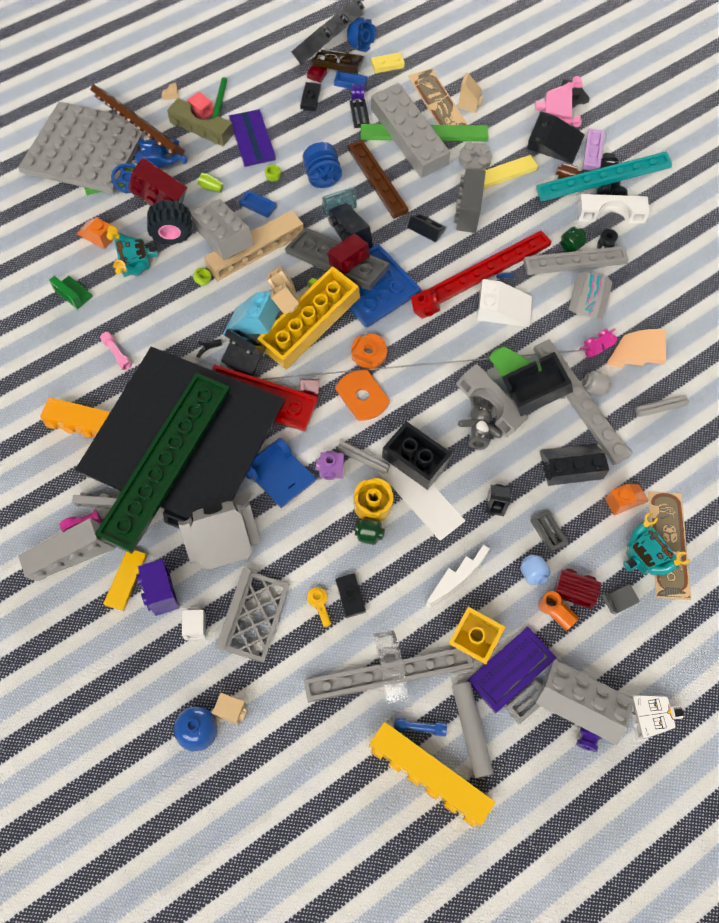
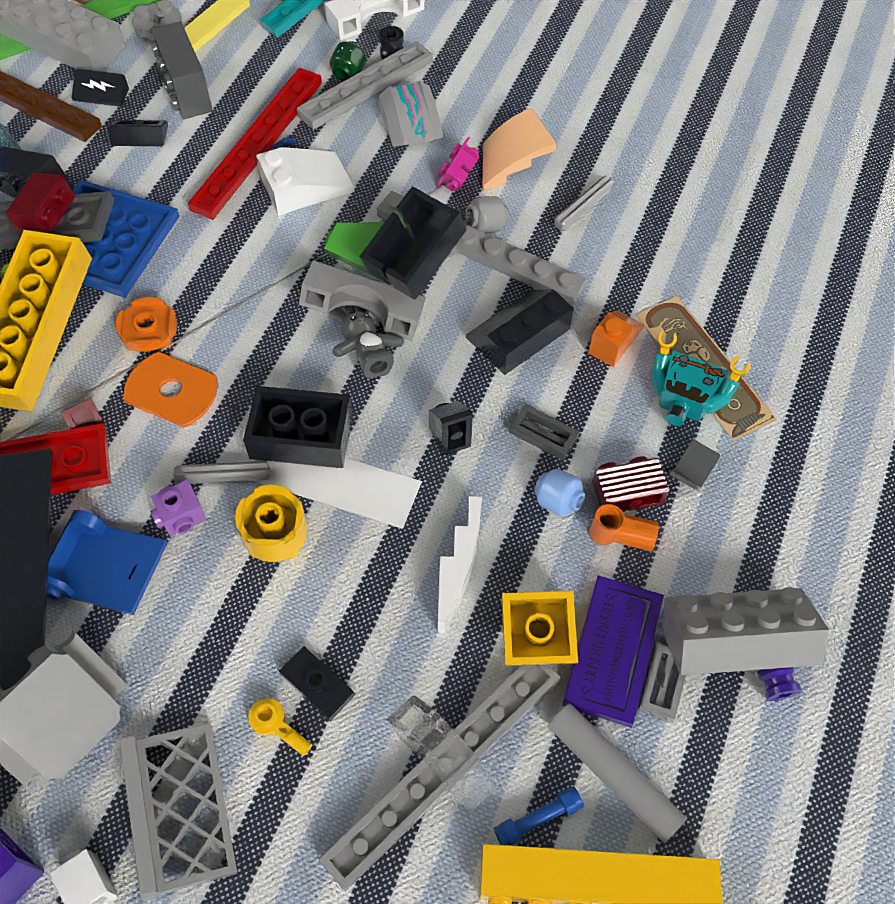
camera: 30 degrees left, 5 degrees down
(369, 530) = (291, 570): dark green head -> none
(419, 187) = (99, 87): none -> black slope
(425, 303) = (194, 223): red brick -> none
(653, 715) = (840, 595): white torso -> none

